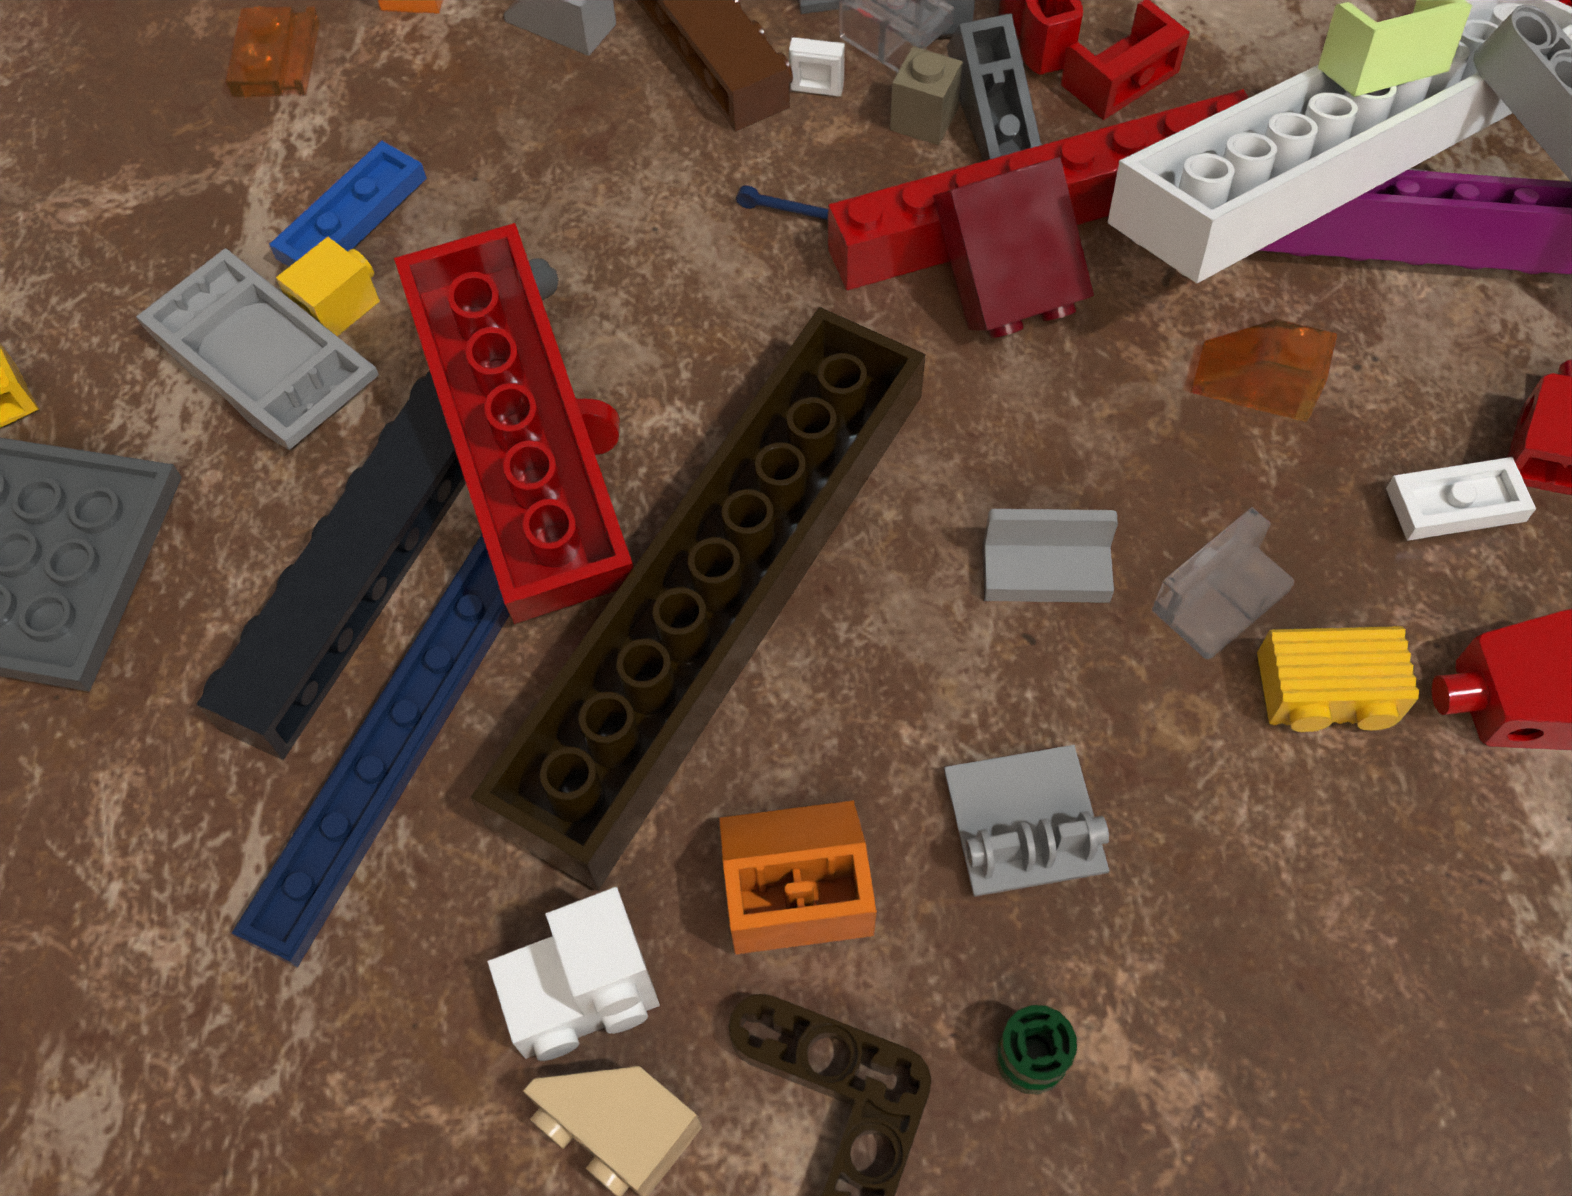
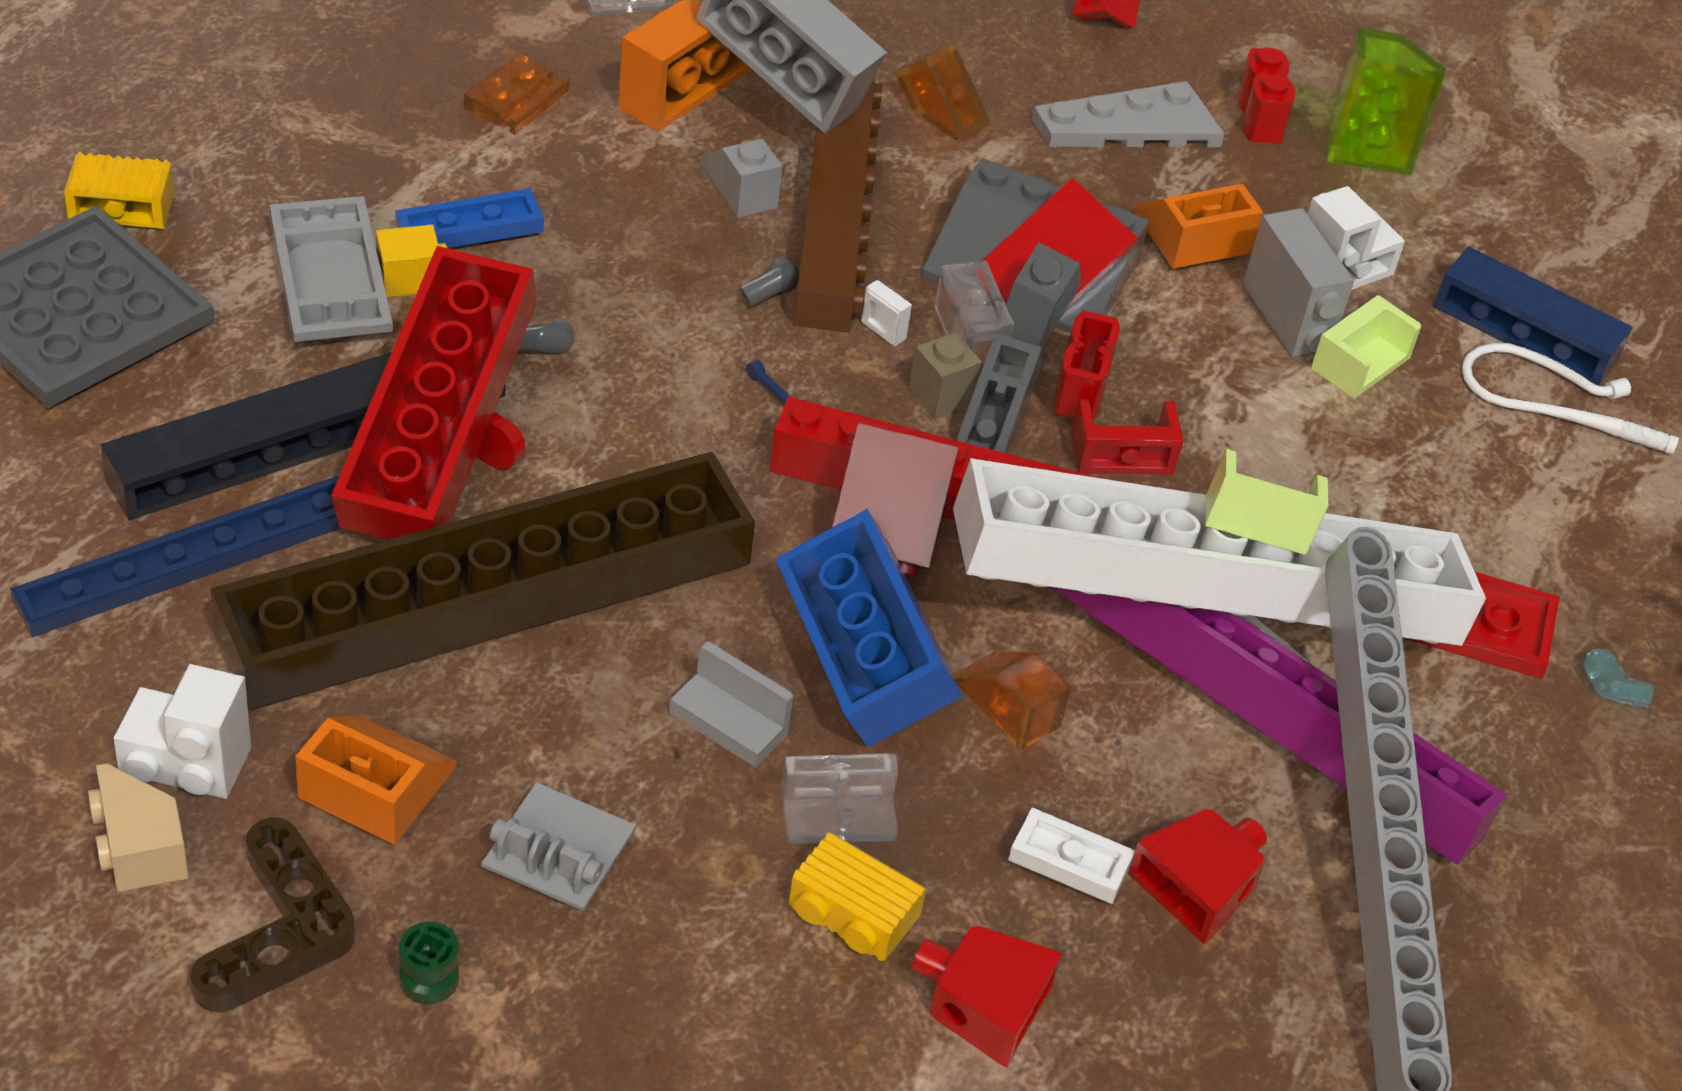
camera: 25 degrees right, 15 degrees down
(688, 92) = (778, 279): none -> dark grey arm
(1112, 392) = (868, 628): none -> blue brick

